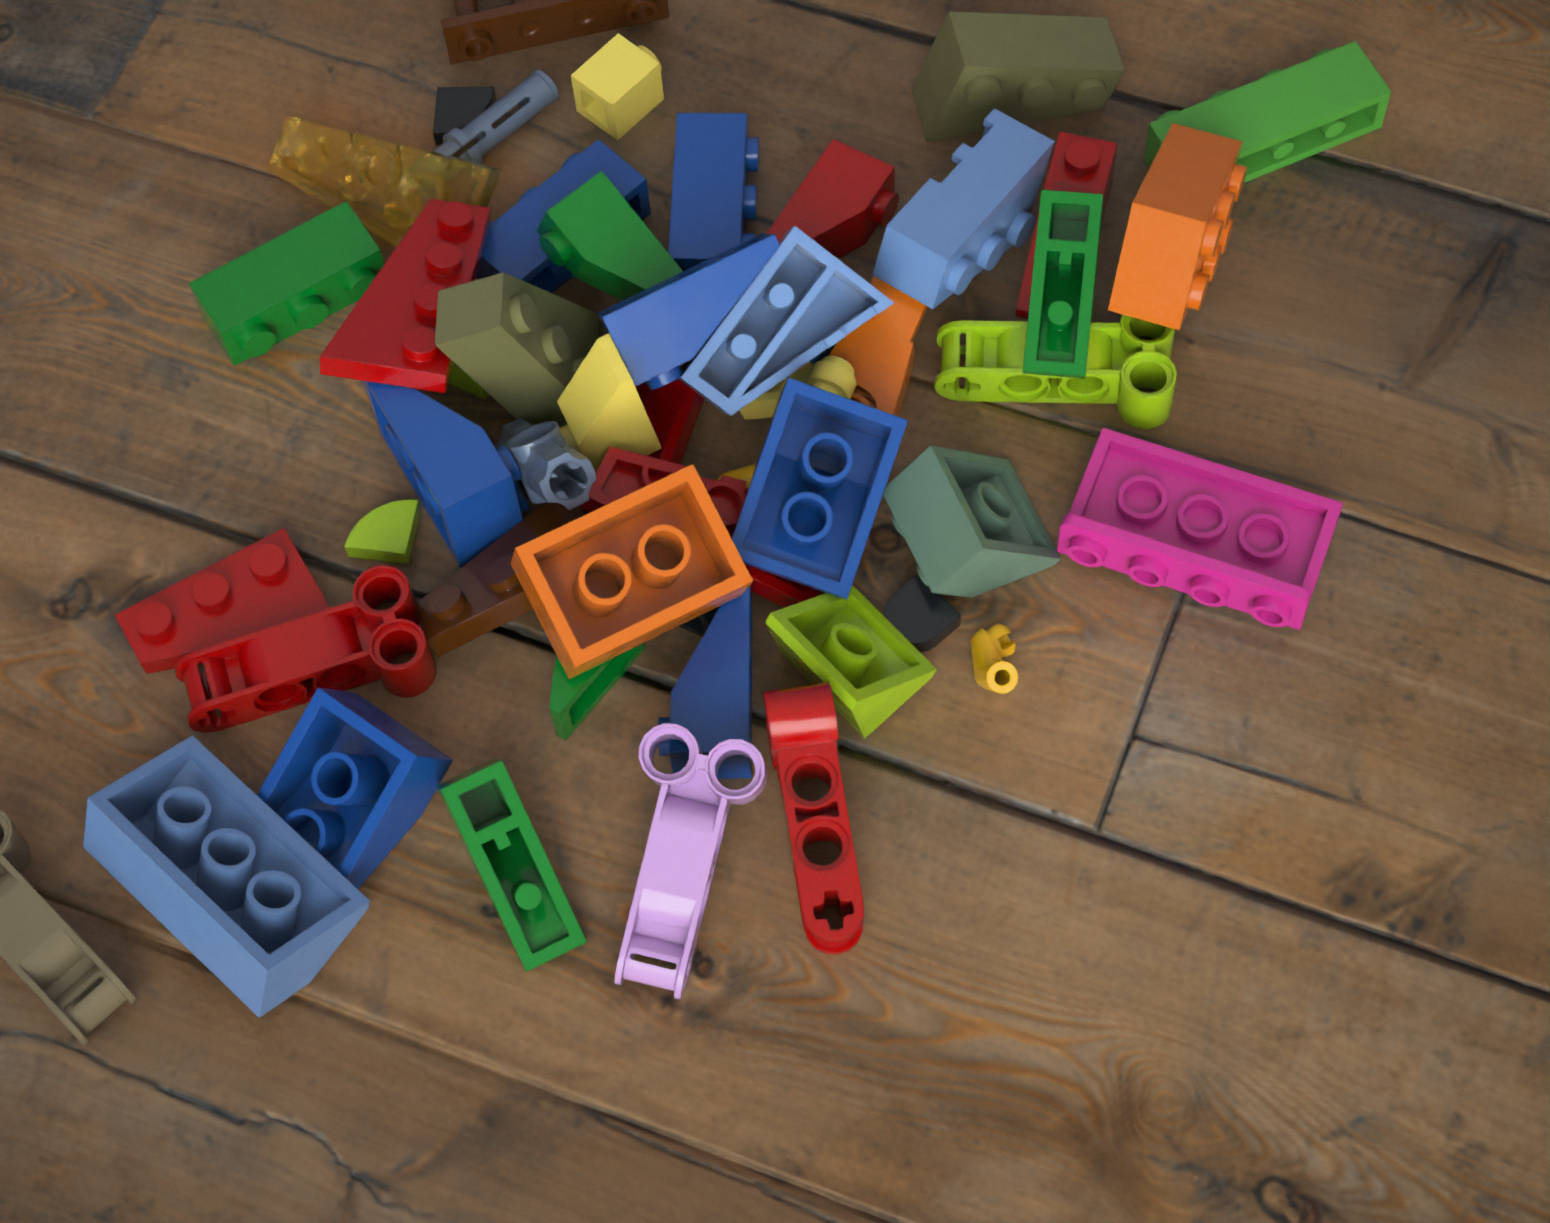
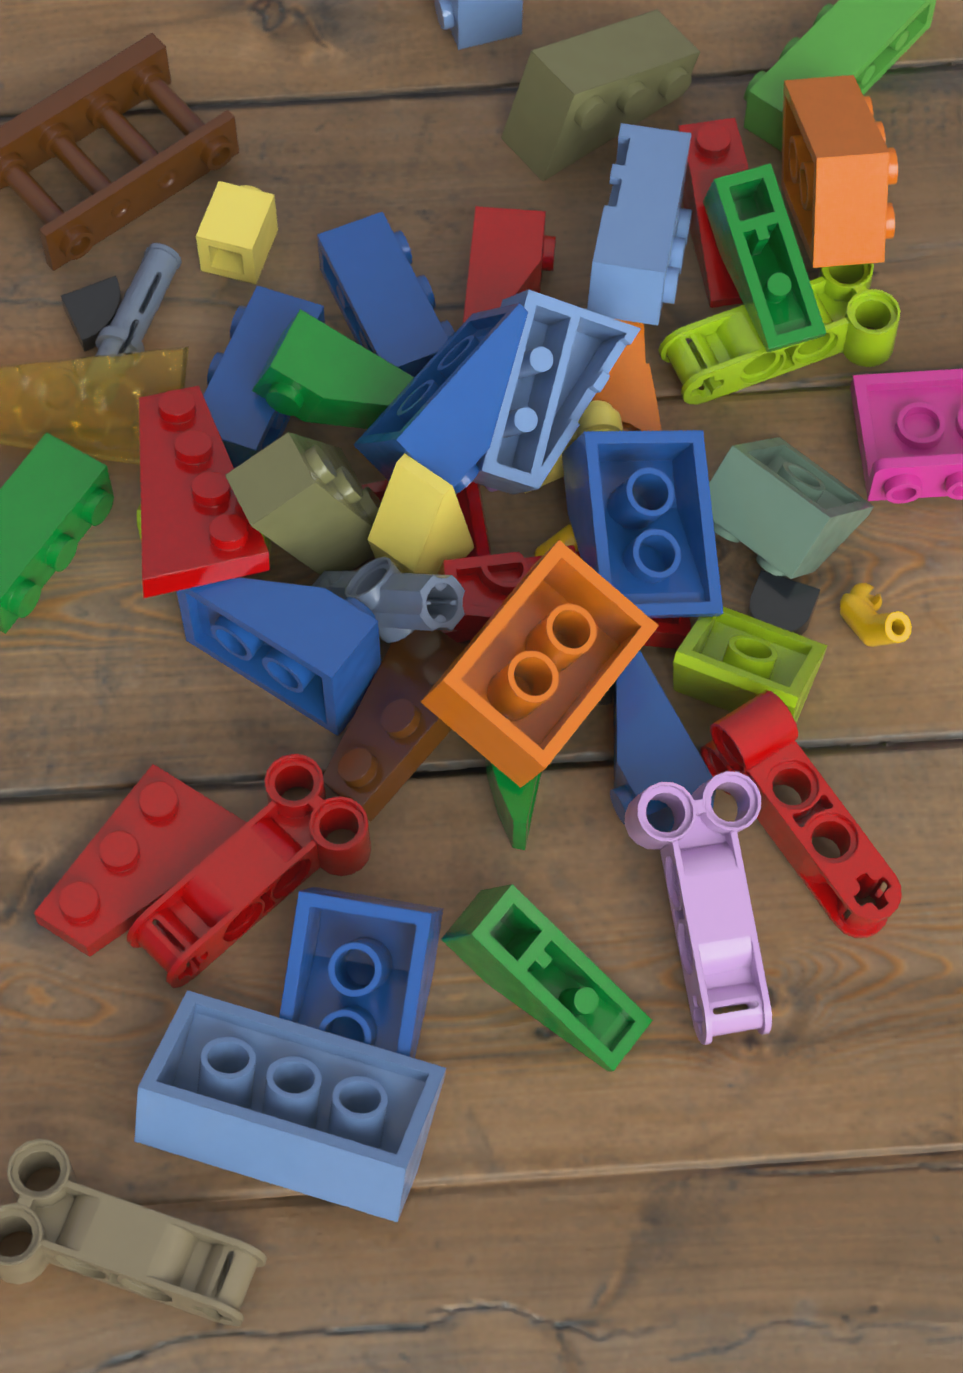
camera: 30 degrees left, 0 degrees up
(386, 533) = (251, 729): lime tile -> none

